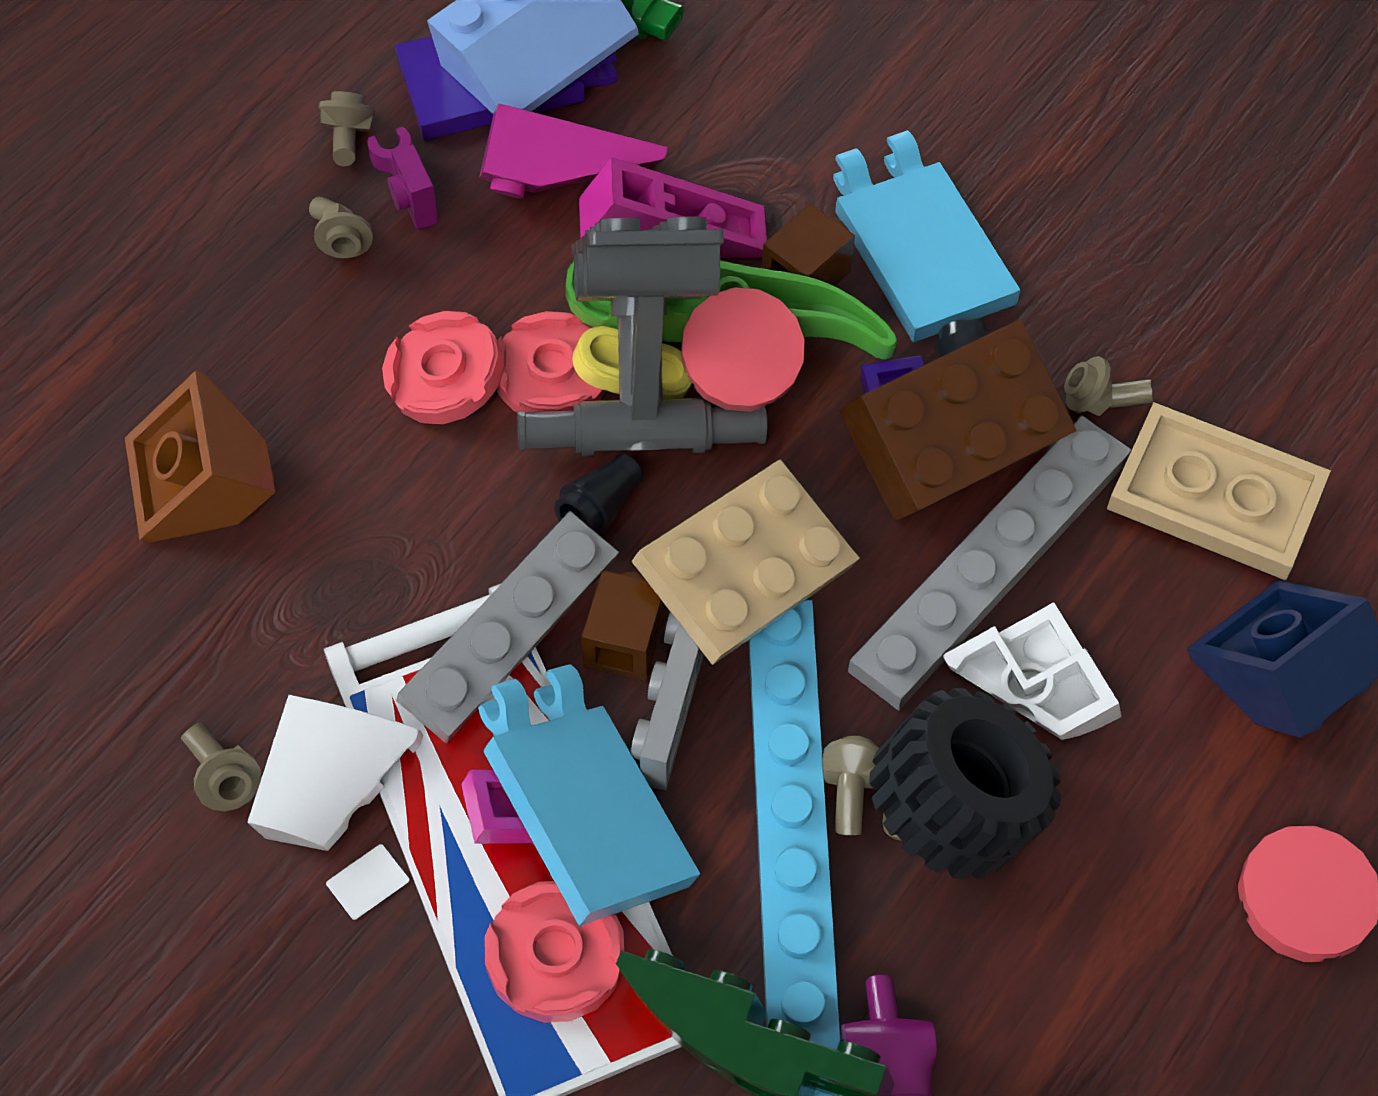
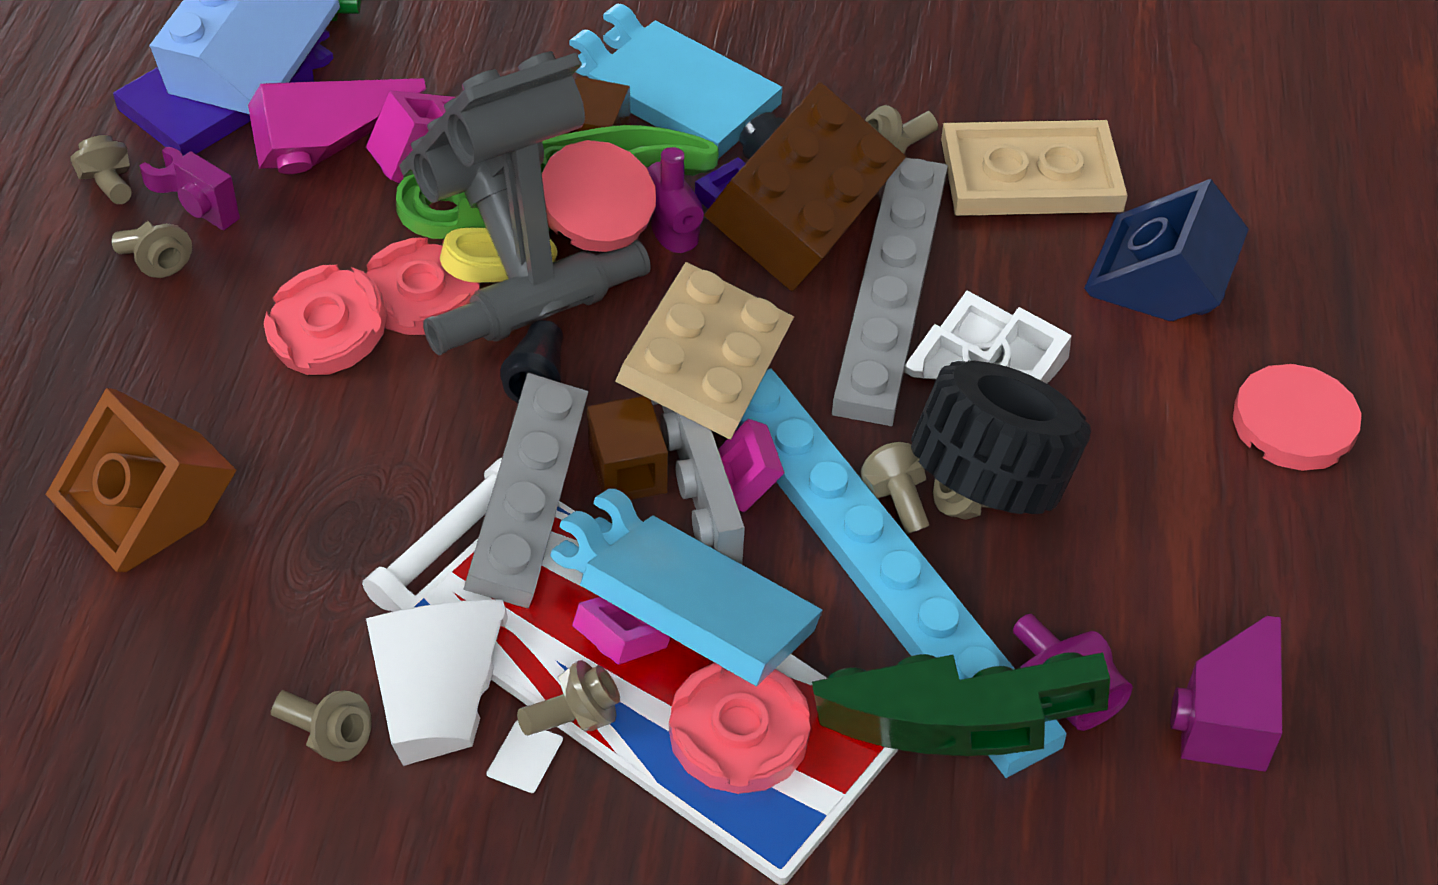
camera: 30 degrees left, 10 degrees down
(429, 859) = (587, 697): none -> dark tan plate
(722, 694) = (750, 462): none -> dark pink plate
(824, 383) = (678, 209): none -> magenta piece

